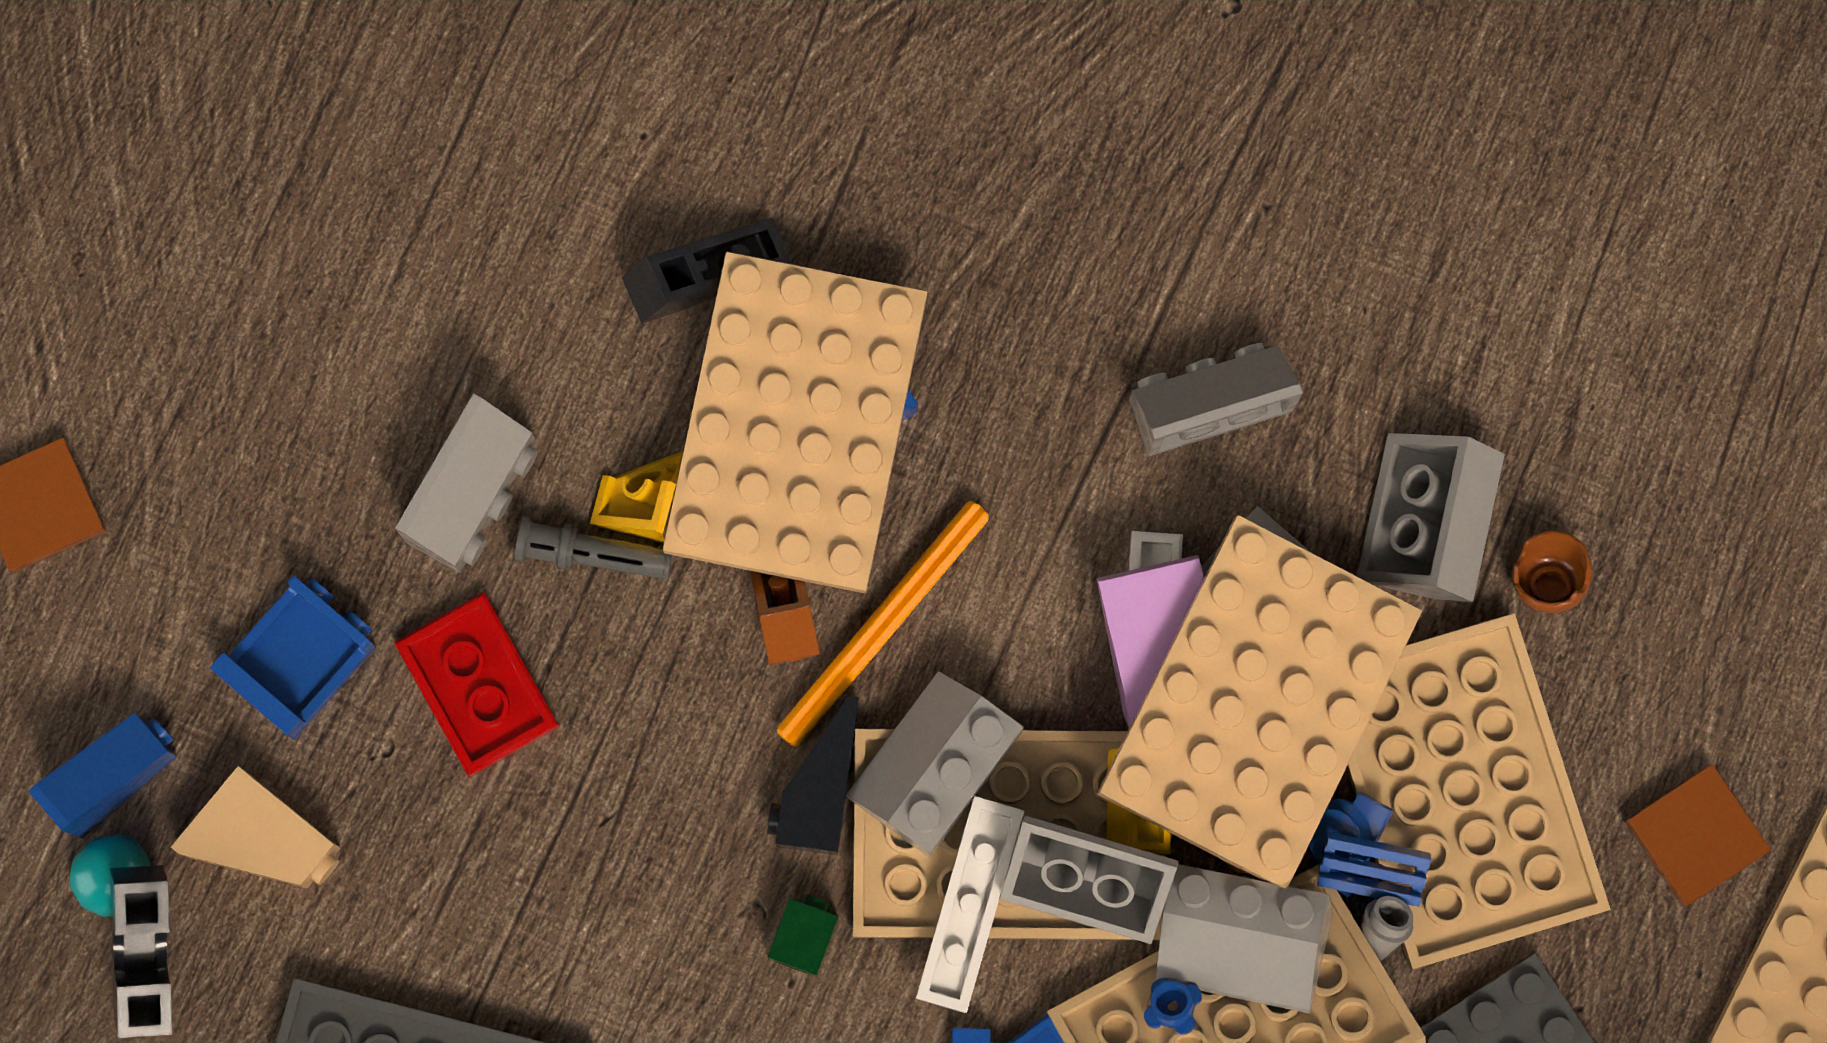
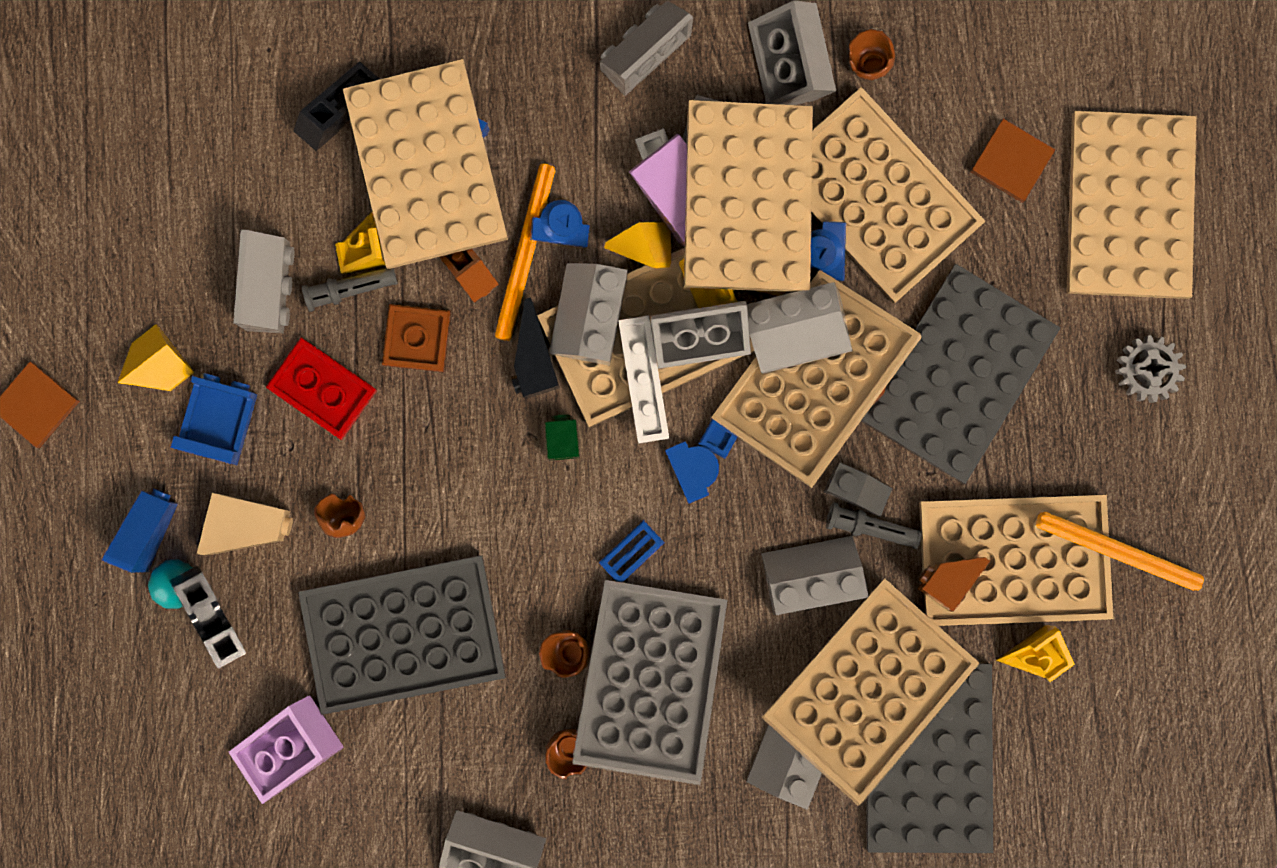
camera: 25 degrees left, 5 degrees up
(246, 527) = (154, 362): none -> yellow slope
(411, 893) = (339, 516): none -> dark orange hair
(656, 676) = (416, 338): none -> dark orange tile
(956, 606) = (560, 224): none -> blue piece
(1070, 699) = (644, 243): none -> yellow slope
(1171, 991) = (773, 374): blue plate -> none
(1370, 887) = (875, 253): blue tile -> none
(1386, 924) = (871, 284): light grey cone -> none

